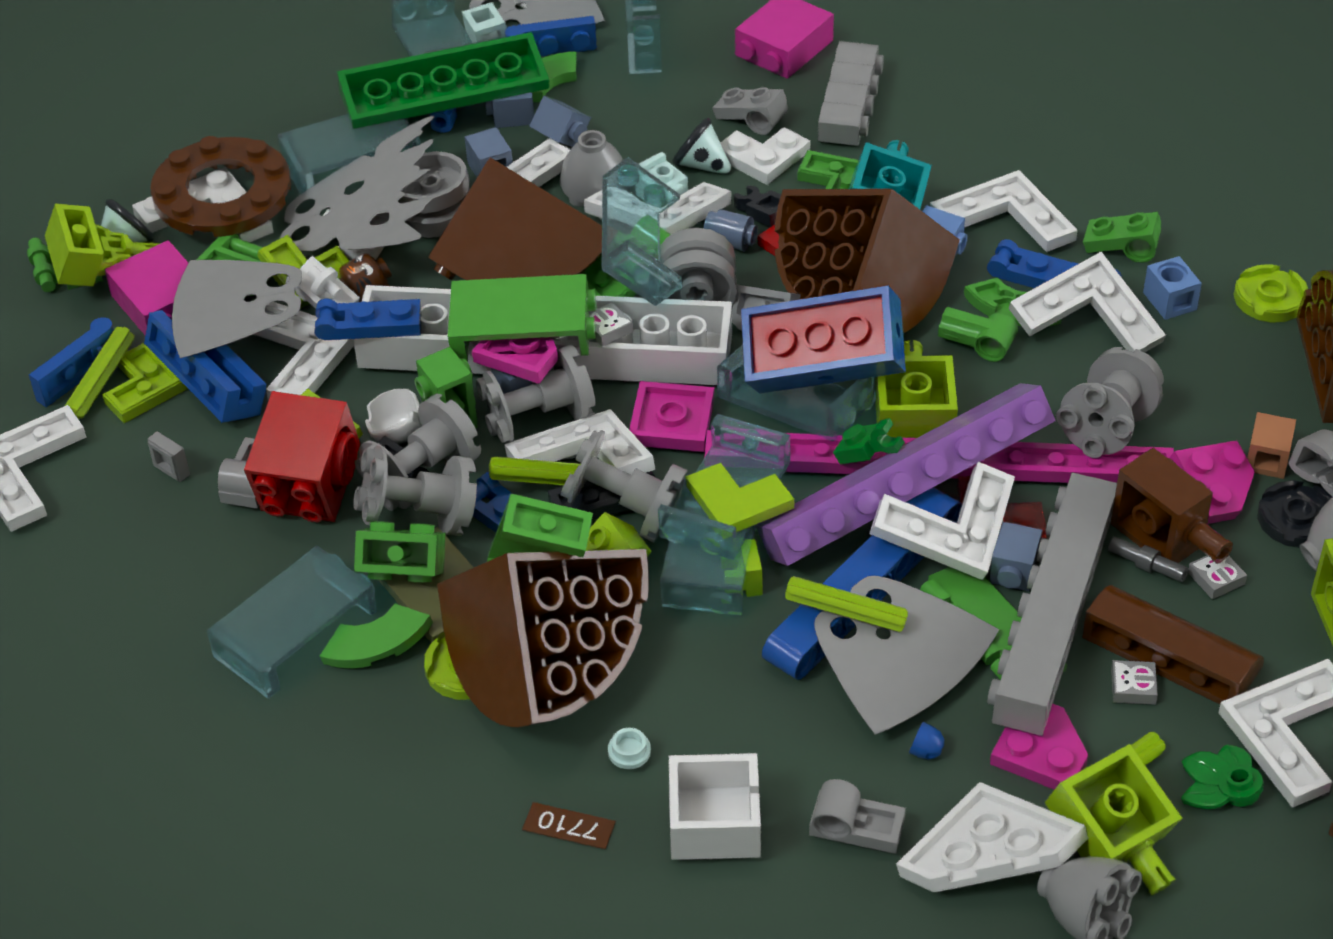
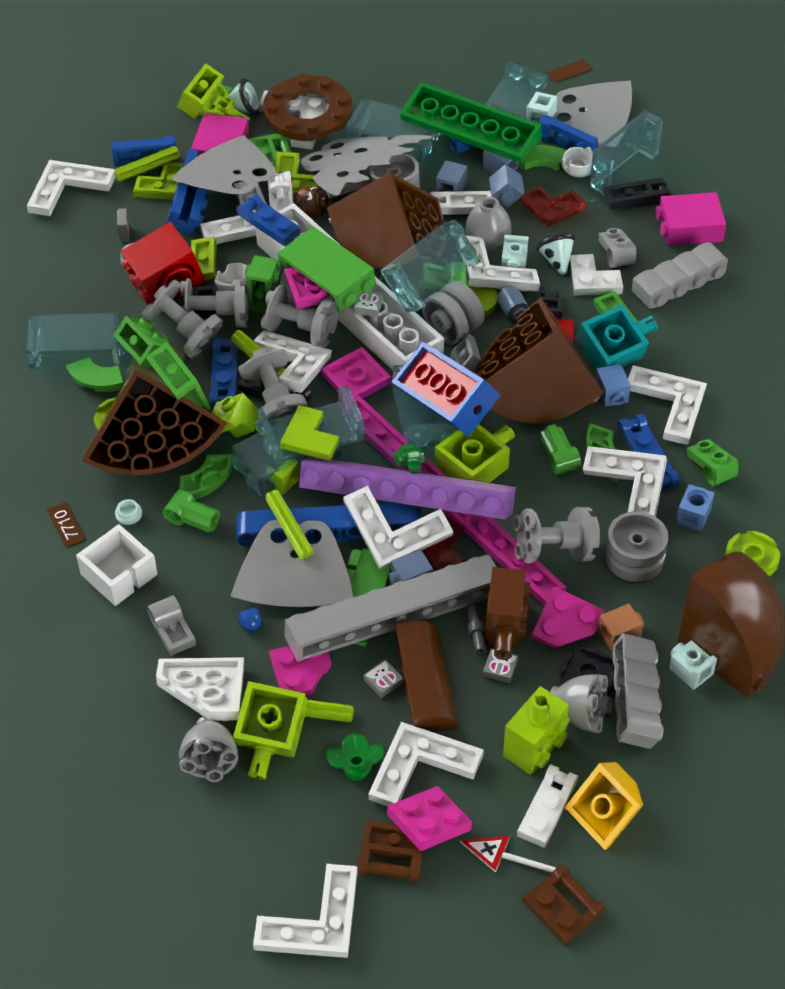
camera: 45 degrees right, 5 degrees up
(599, 52) = (577, 161): none -> white hair
(632, 117) = (551, 209): none -> clear red plate
(660, 646) = (208, 476): none -> bright green tile
(691, 692) = (184, 509): none -> bright green piece
(694, 47) = (635, 193): none -> black plate
(1189, 354) = (636, 546): none -> light grey wheel

